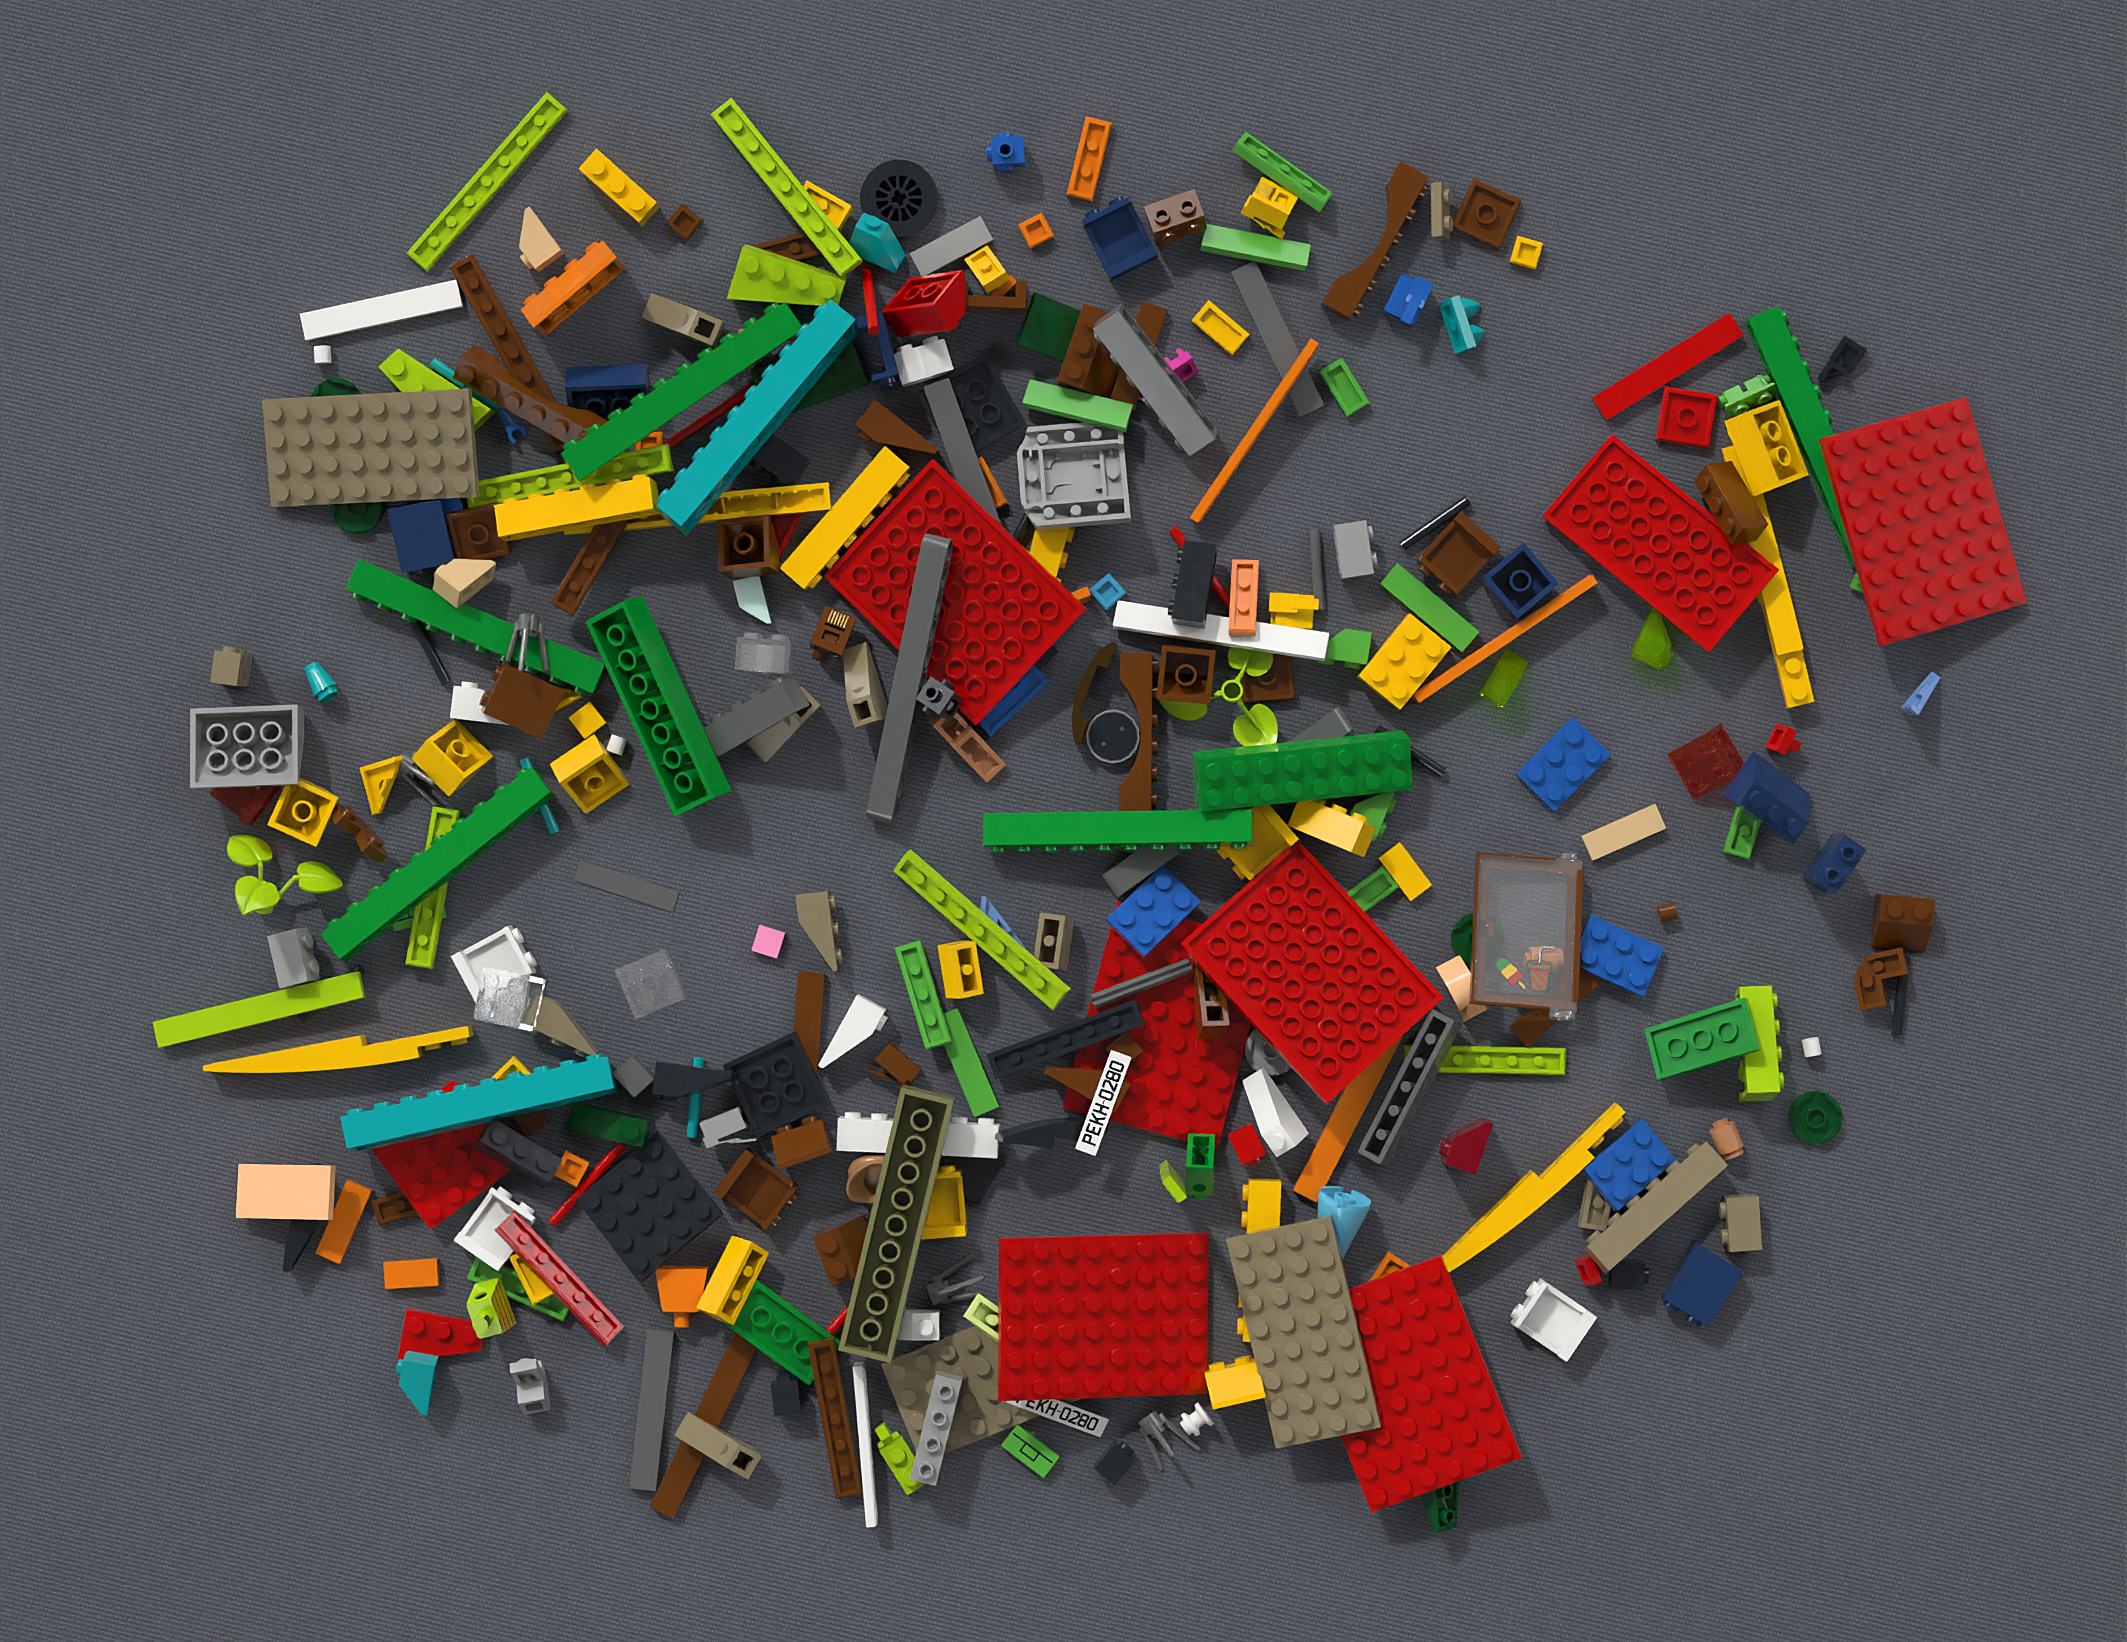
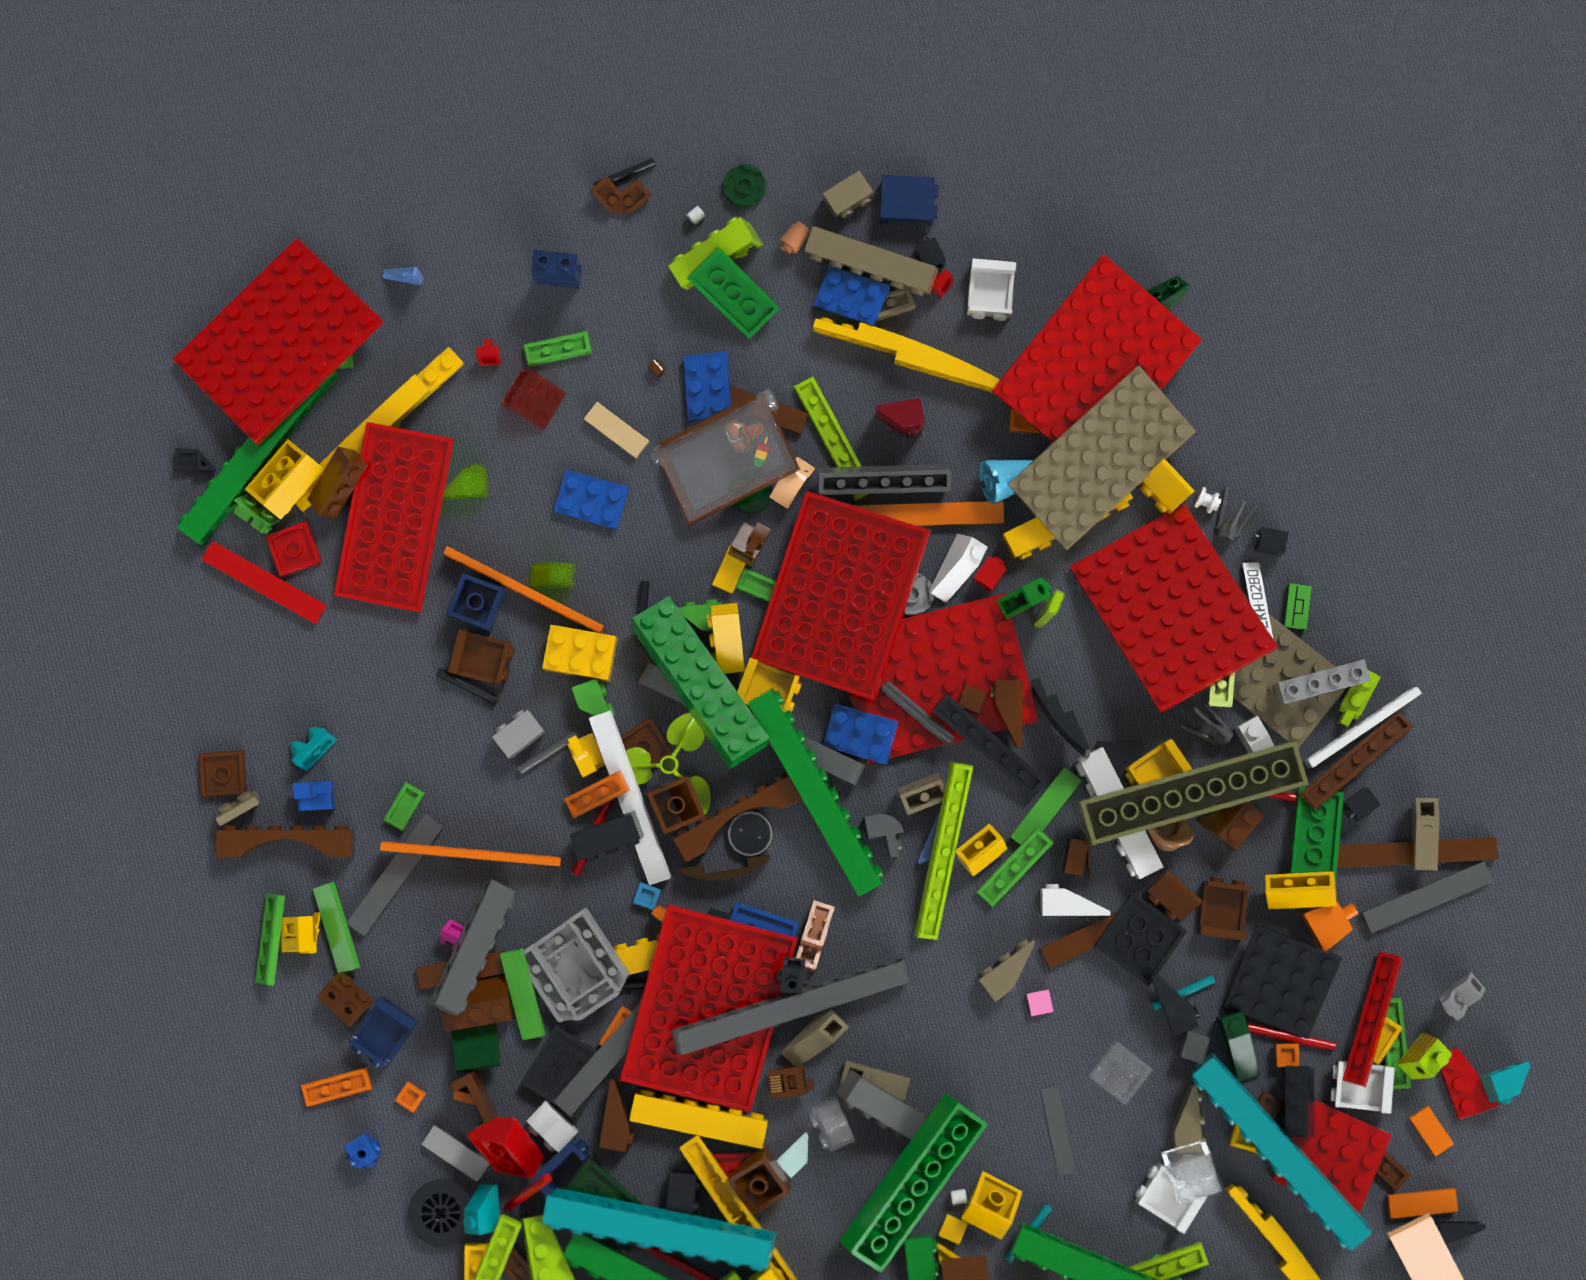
camera: 115 degrees left, 5 degrees down
(723, 1125) = (1192, 960): light grey piece -> none
(987, 269) = (457, 1117): yellow plate -> none
(1043, 881) = (887, 826): none -> dark grey brick
(1103, 1102) = (1019, 692): white sticker -> none
(1210, 1007) = (907, 653): reddish brown slope -> none
(1220, 327) = (409, 921): yellow tile -> none
(1422, 906) = (749, 543): none -> reddish brown piece
(1429, 607) = (531, 656): bright green tile -> none
(1526, 252) = (235, 729): yellow tile -> none
(1770, 798) = (535, 339): dark blue slope -> none
(1902, 922) = (572, 200): reddish brown slope -> none

